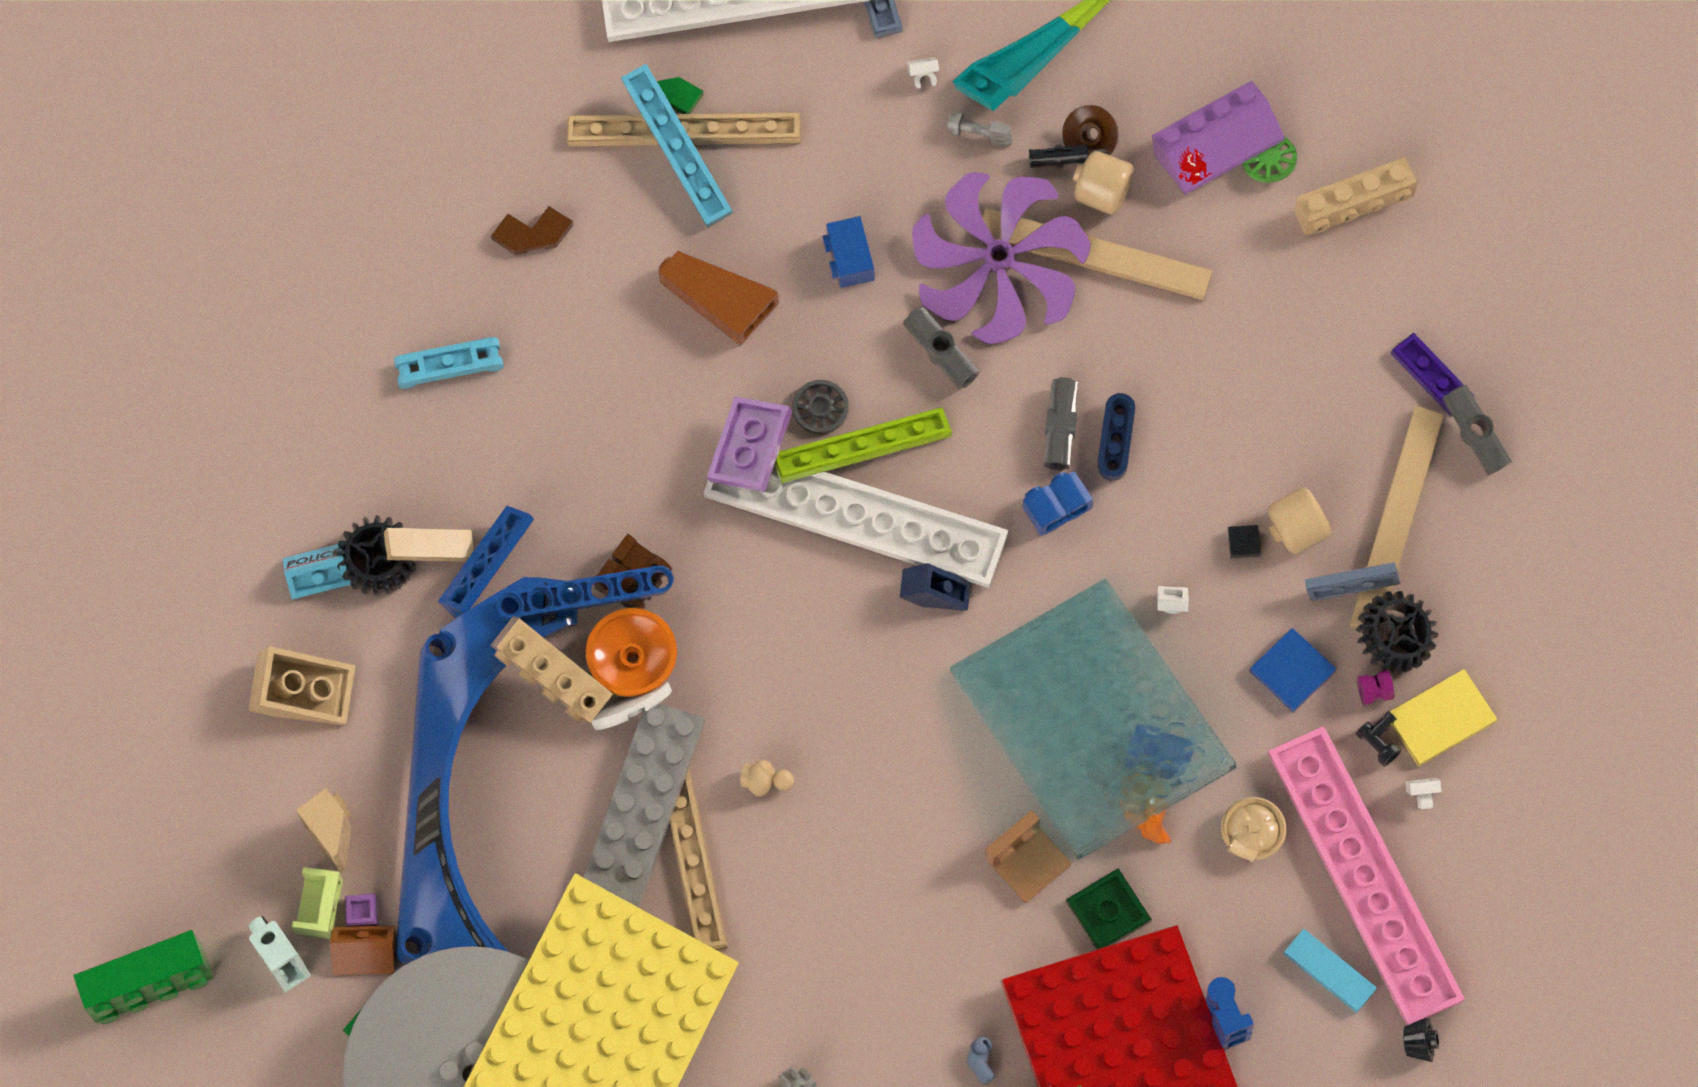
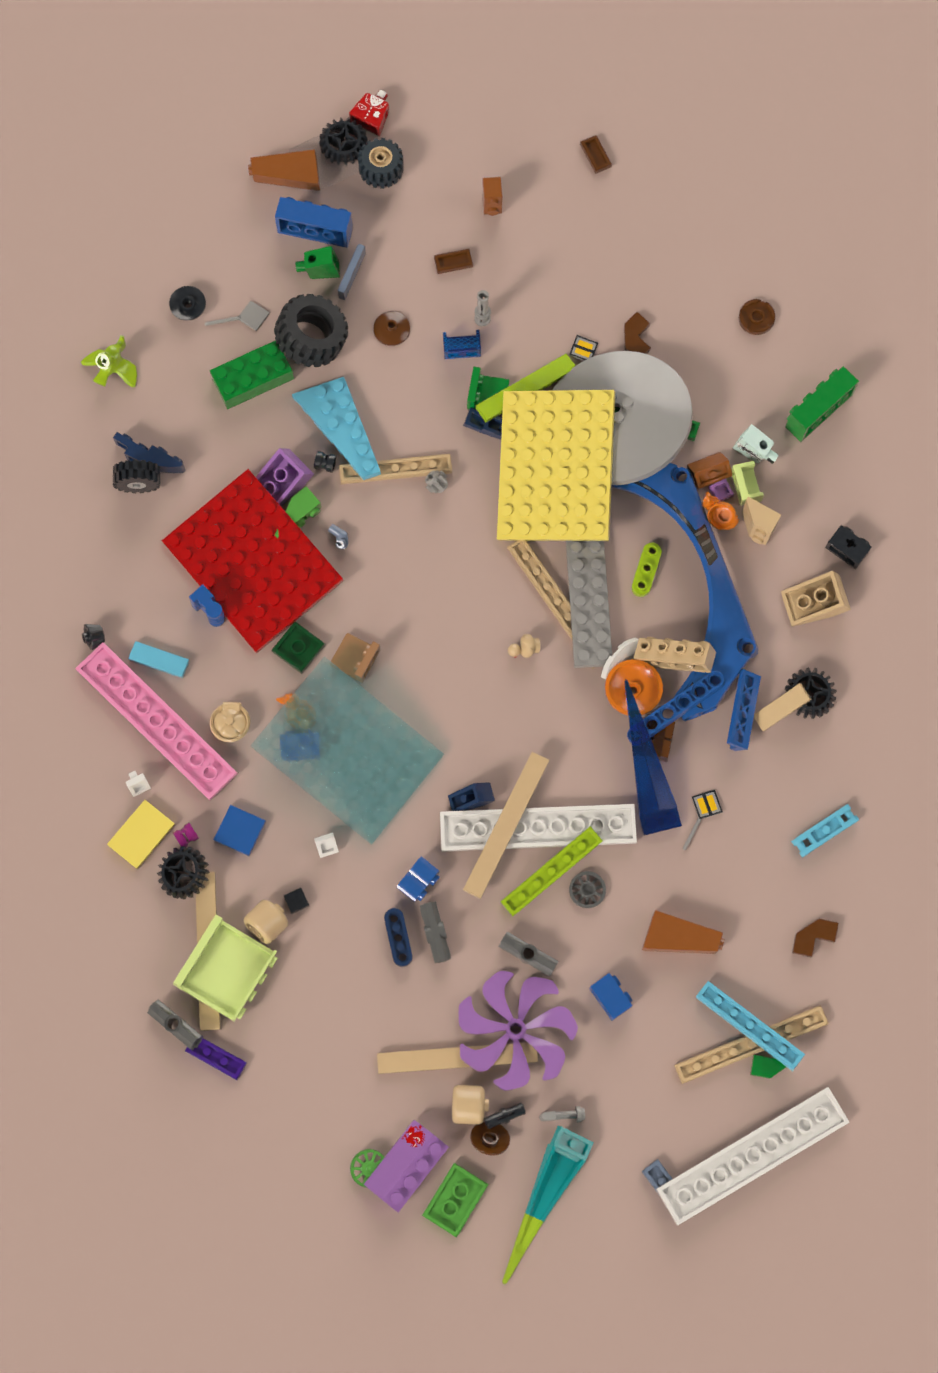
camera: 155 degrees right, 5 degrees up
(209, 731) = (852, 555): none -> black brick
(314, 571) = (843, 671): medium azure panel -> none
(382, 869) = (720, 514): none -> orange hair
(526, 844) = (643, 576): none -> lime plate
(600, 460) = (706, 806): none -> piece
(669, 494) = (654, 797): none -> clear blue plate
(749, 444) = (618, 839): medium lavender plate -> none
(900, 528) = (506, 825): none -> tan tile
(921, 68) = (616, 1145): white tile -> none
(1166, 82) = (455, 1200): none -> bright green tile
(1352, 581) = (220, 893): sand blue tile -> none
(1355, 196) = (303, 1159): tan brick -> none
(1372, 734) = (178, 806): black piece -> none
(1378, 478) = (225, 969): none -> yellowish green panel

